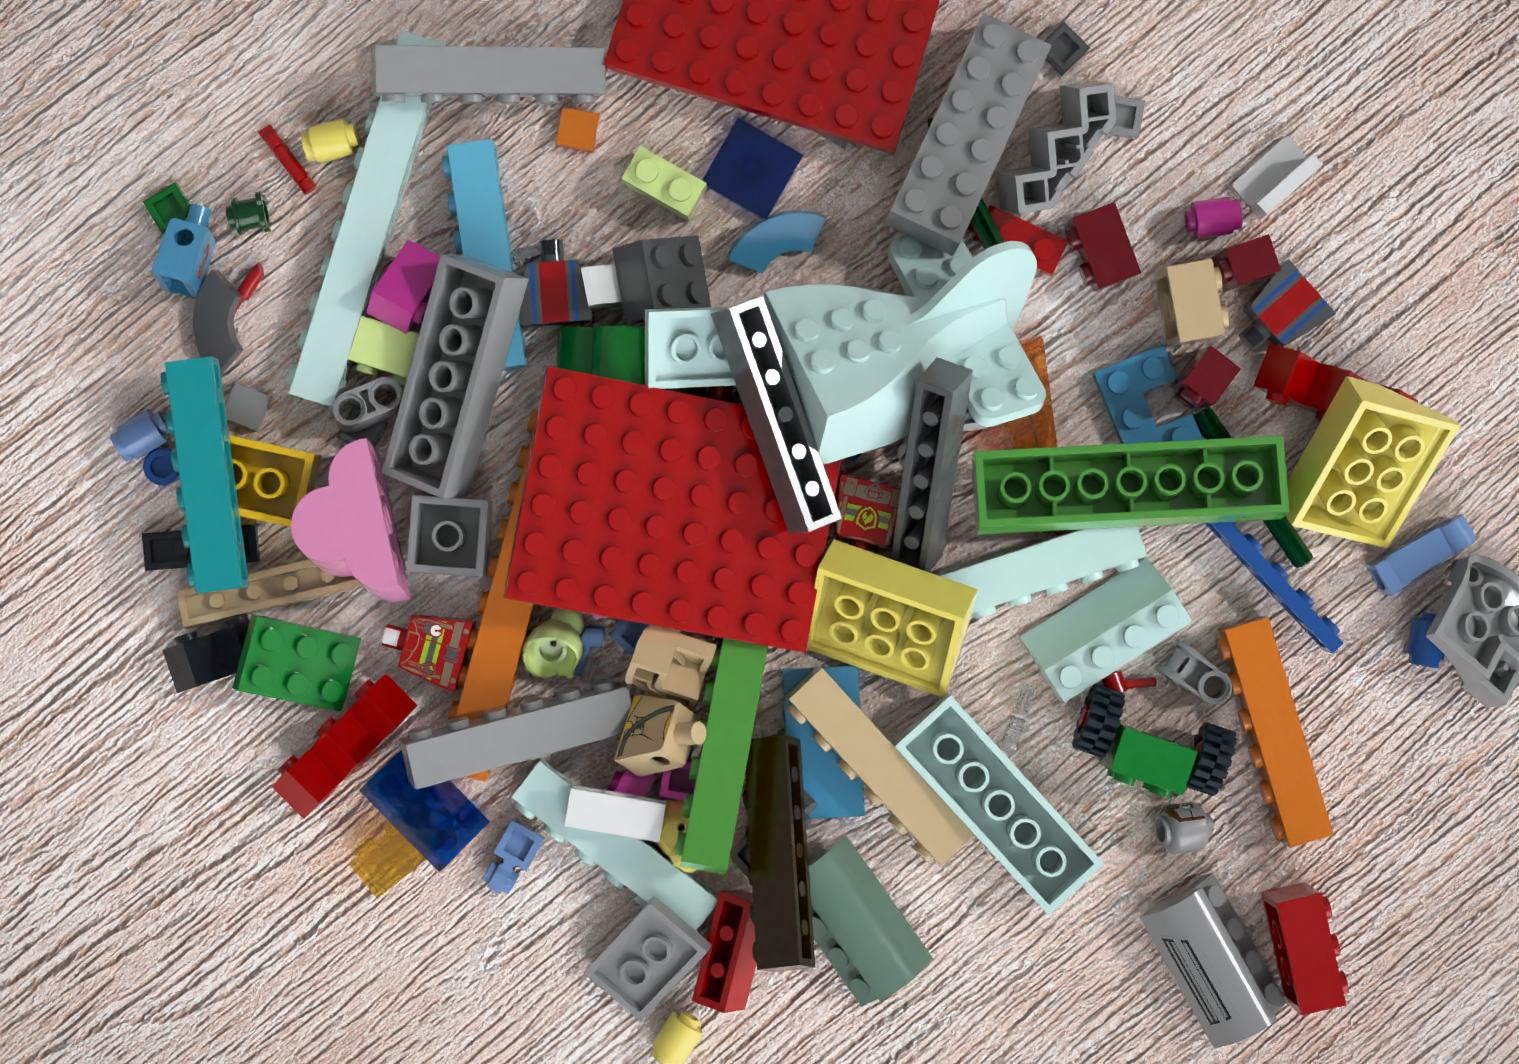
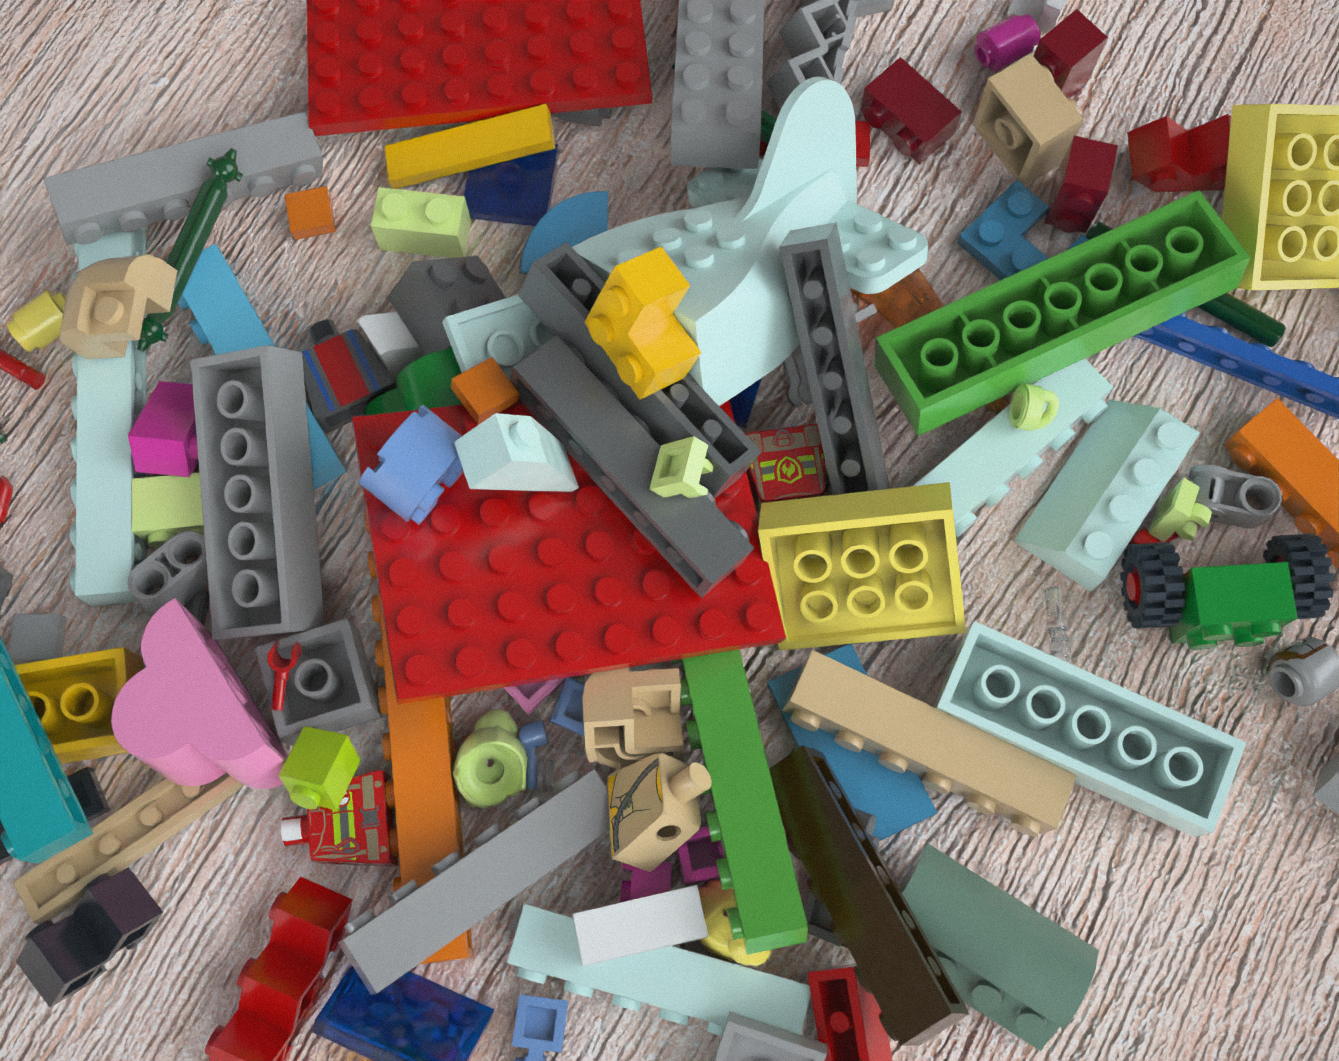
camera: 15 degrees left, 15 degrees down
(296, 663) = (183, 906): green plate -> none
(395, 174) = (110, 302): none -> tan brick
(428, 521) = (281, 672): none -> red hand
(428, 606) = (319, 768): none -> lime brick
(468, 141) = (193, 239): none -> dark green wheel
(583, 437) = (415, 465): none -> medium blue brick
(655, 382) = (484, 390): none -> orange tile
(655, 462) = (514, 455): none -> light aqua slope
(729, 130) = (469, 146): none -> yellow tile
(741, 485) = (622, 460): none -> dark grey brick
(774, 512) = (680, 468): none -> yellowish green tile
(788, 401) = (638, 325): none -> yellow brick
(1069, 549) = (1028, 407): none -> yellowish green tile
(1149, 672) = (1178, 511): none -> yellowish green tile
(1284, 309) = (1124, 94): torso -> none

